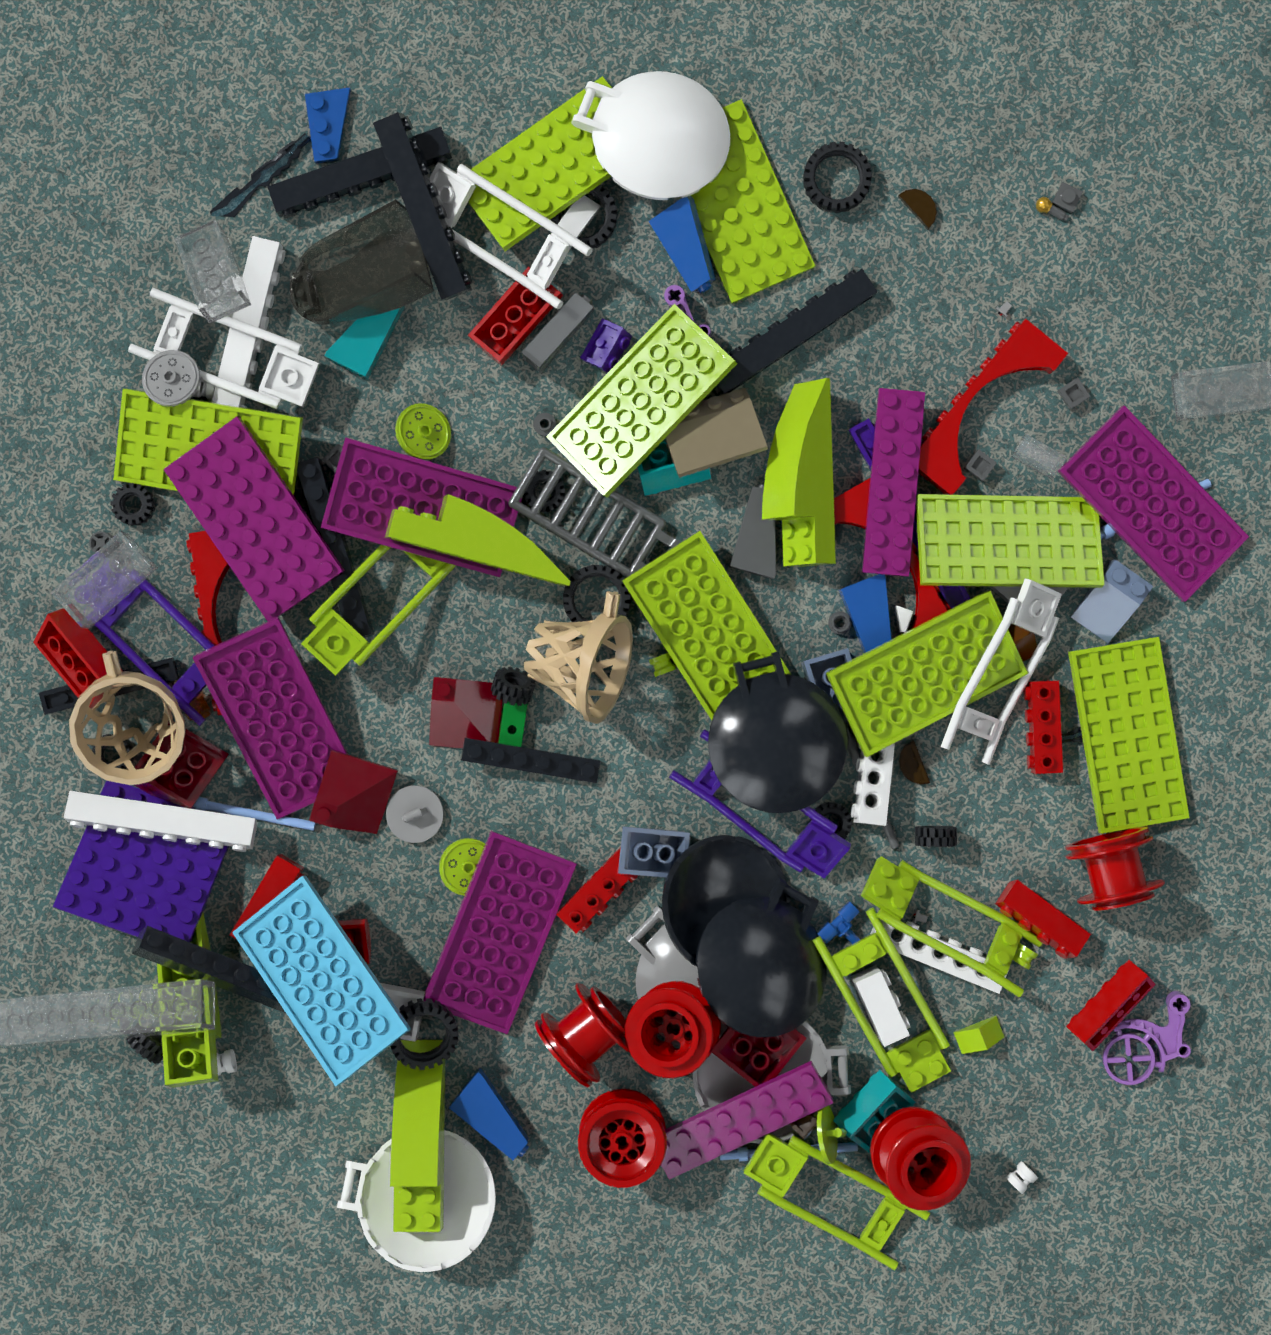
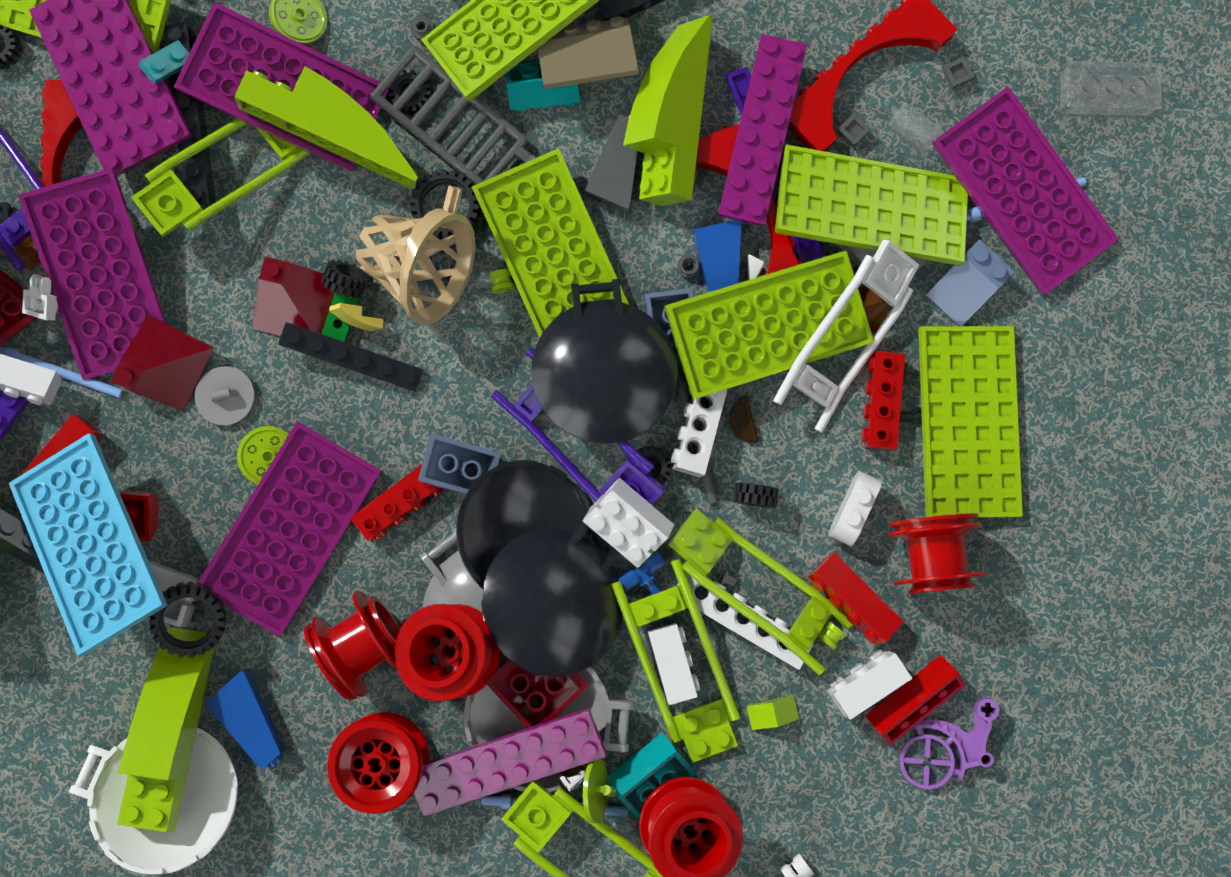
camera: 10 degrees right, 5 degrees down
(224, 751) = (38, 300): none -> white hinge
(308, 504) = (164, 62): none -> teal plate
(530, 722) = (353, 316): none -> light yellow slope
(820, 881) = (628, 522): none -> white piece
(1031, 834) = (855, 508): none -> white brick
(1065, 997) = (868, 683): none -> white piece

